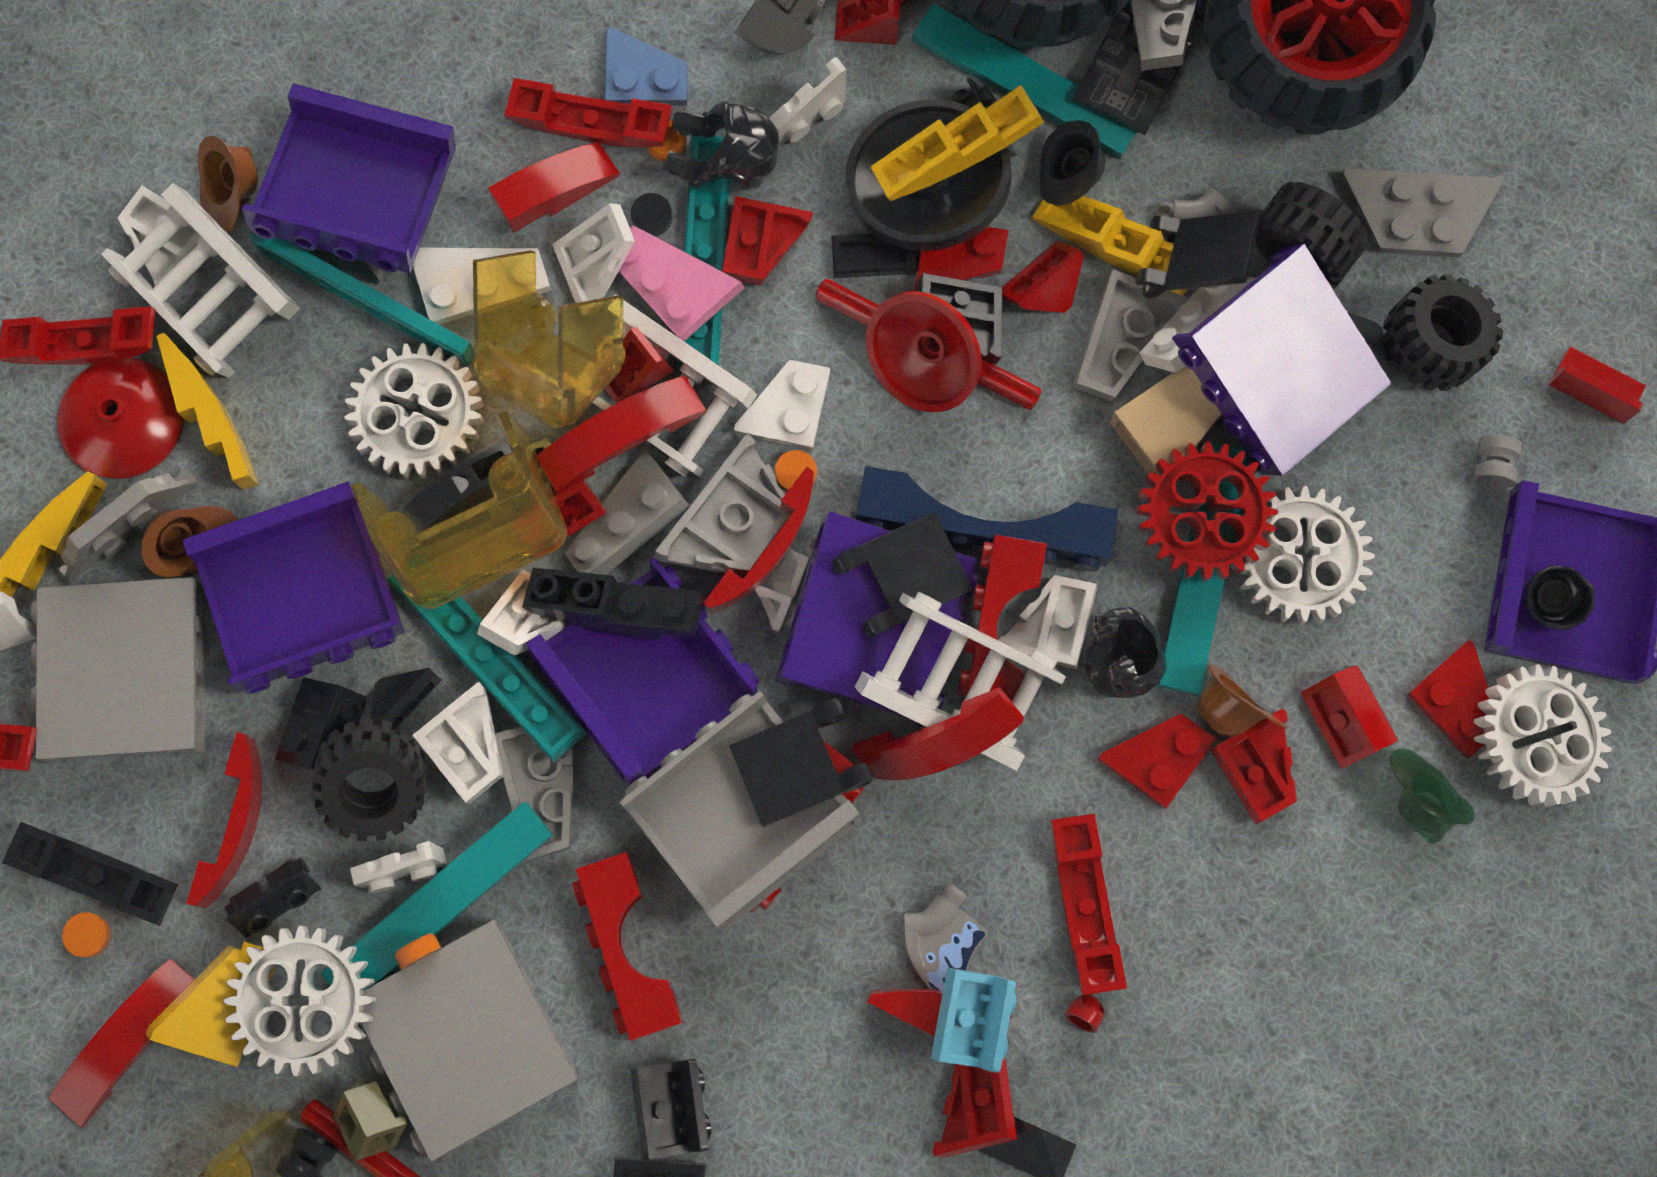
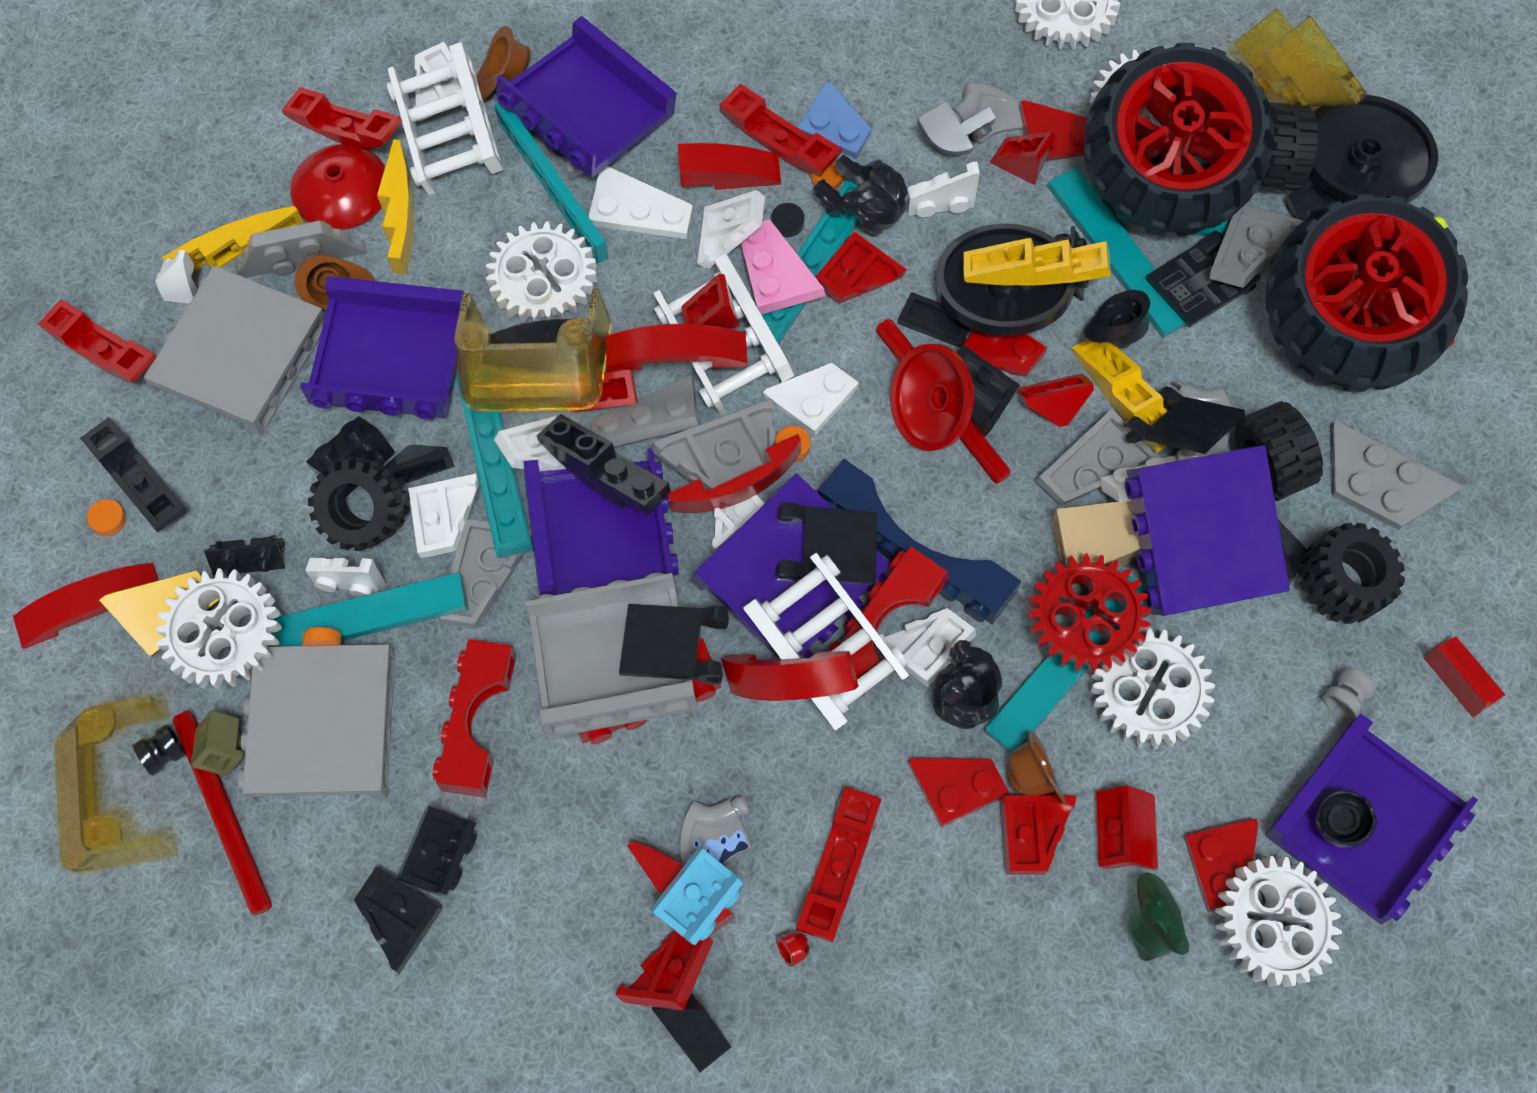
camera: 30 degrees right, 10 degrees down
(211, 878) = (214, 521): red slope -> none
(521, 354) = (654, 261): clear yellow windscreen -> none

